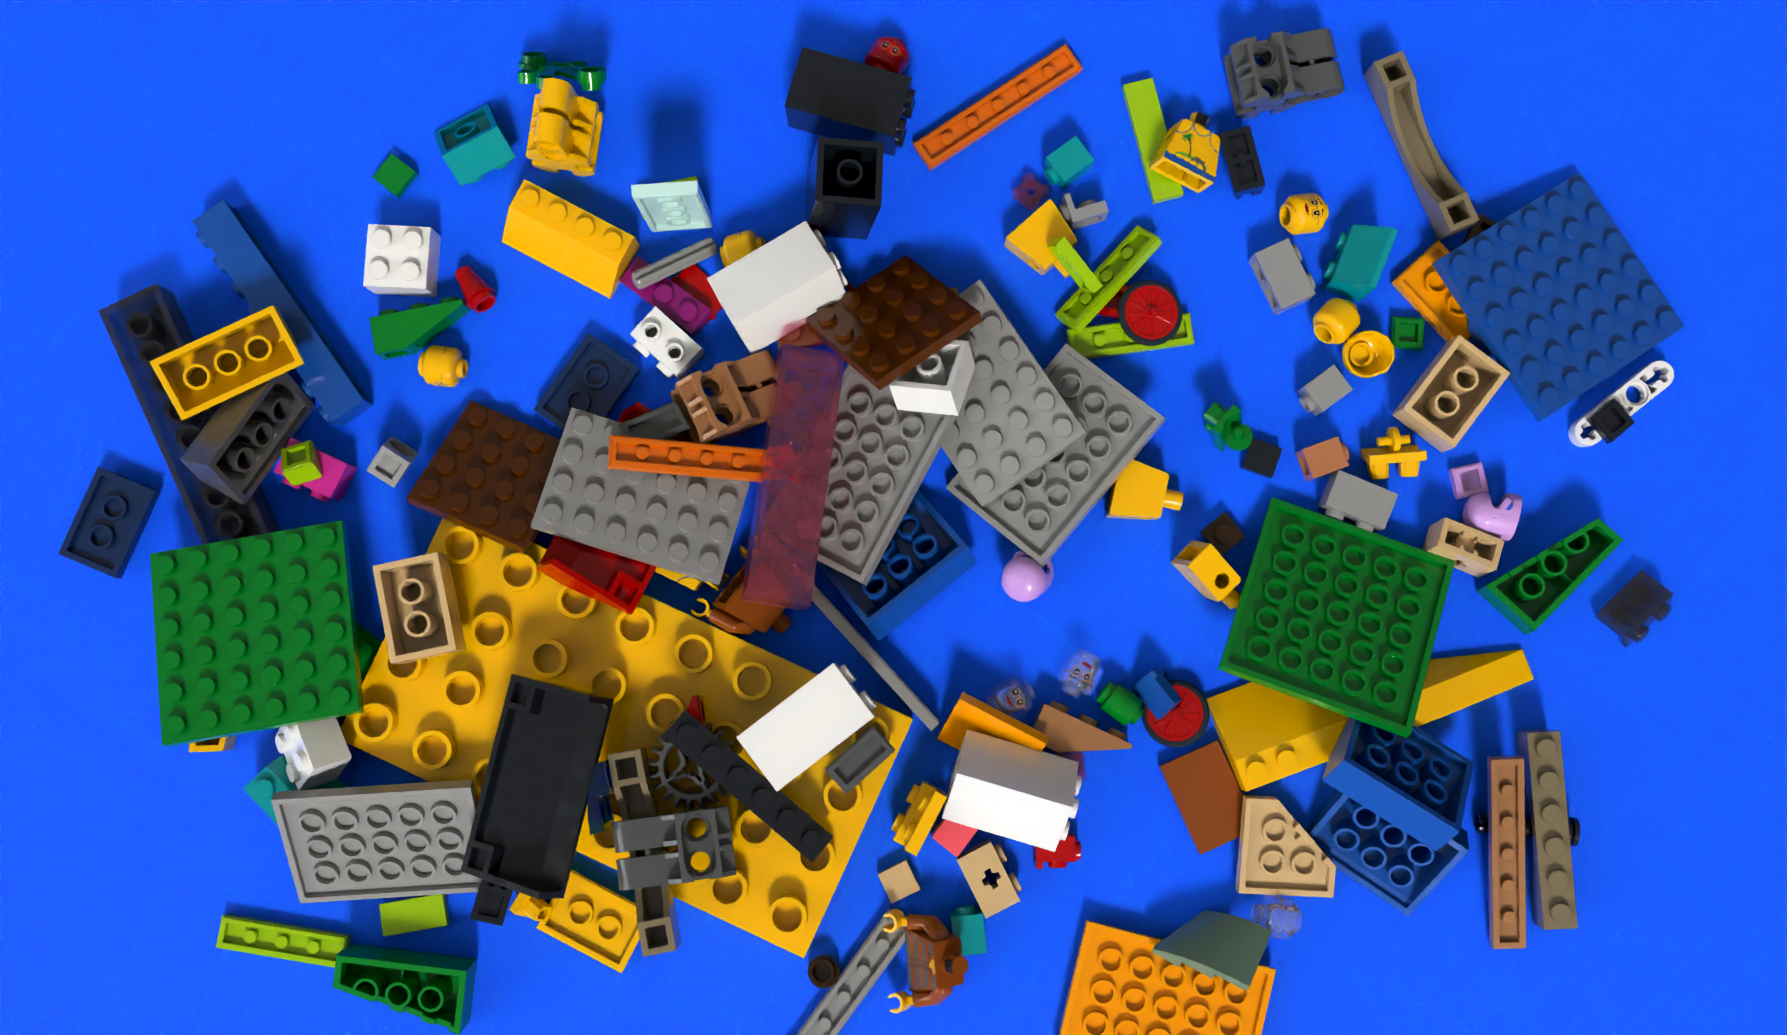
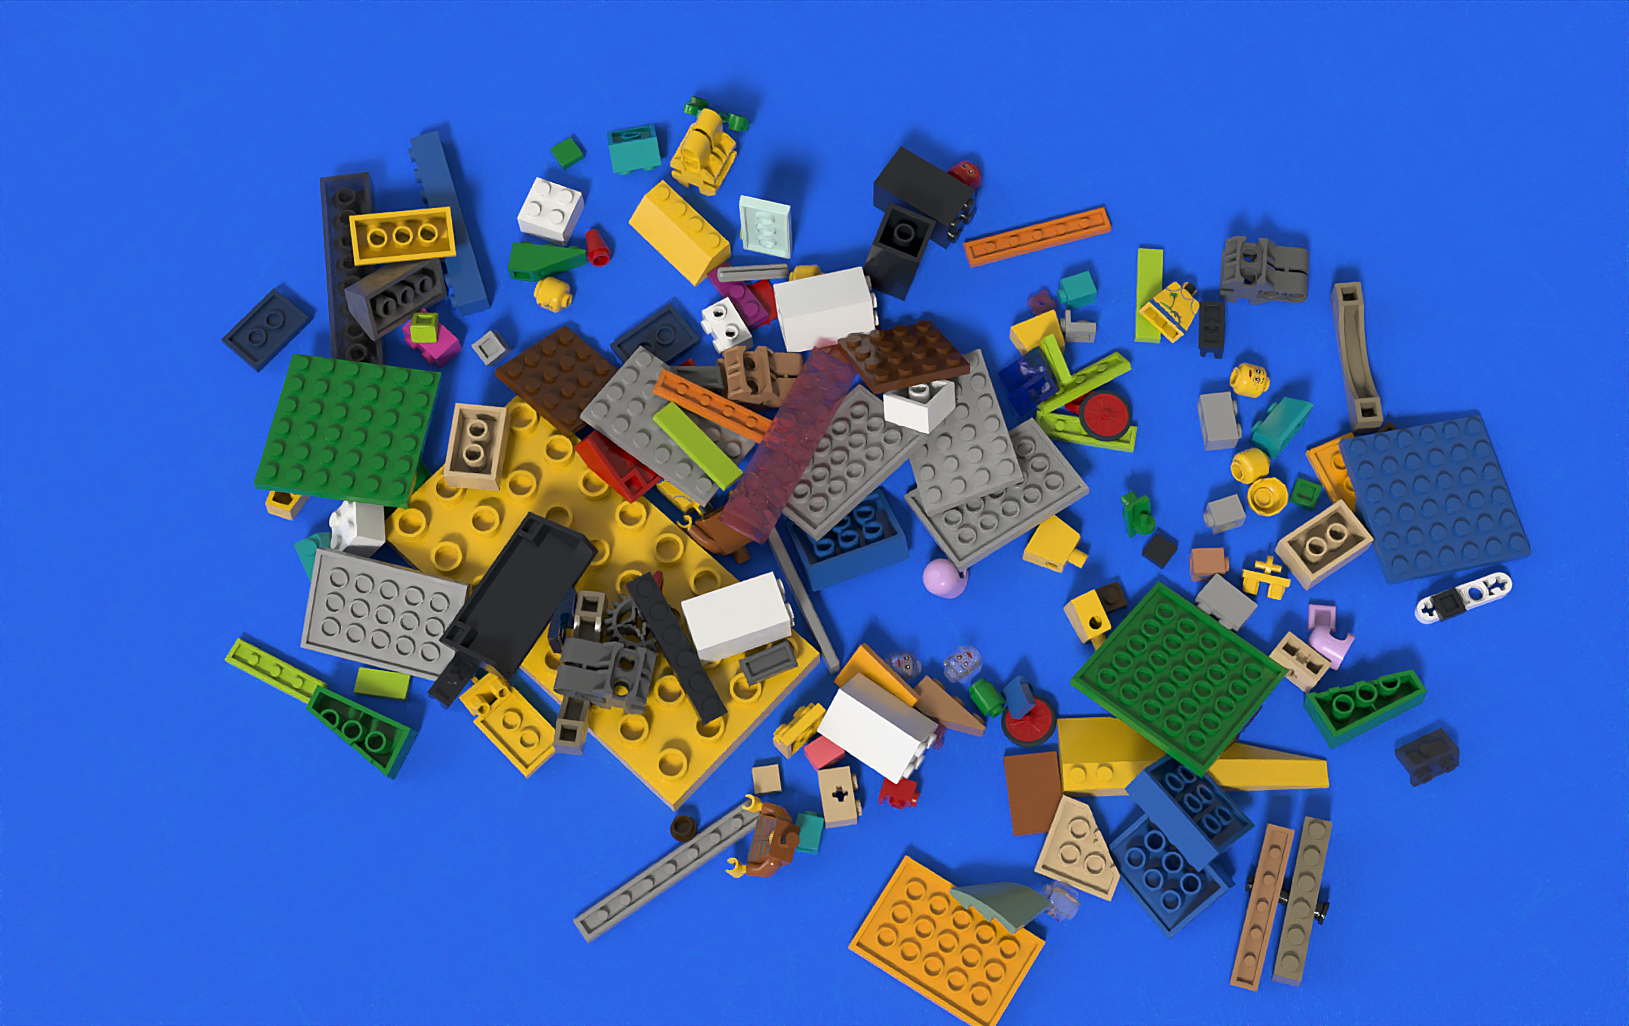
camera: 20 degrees right, 15 degrees down
(685, 515) = (698, 446): none -> lime tile
(1049, 298) = (1029, 381): none -> clear blue slope

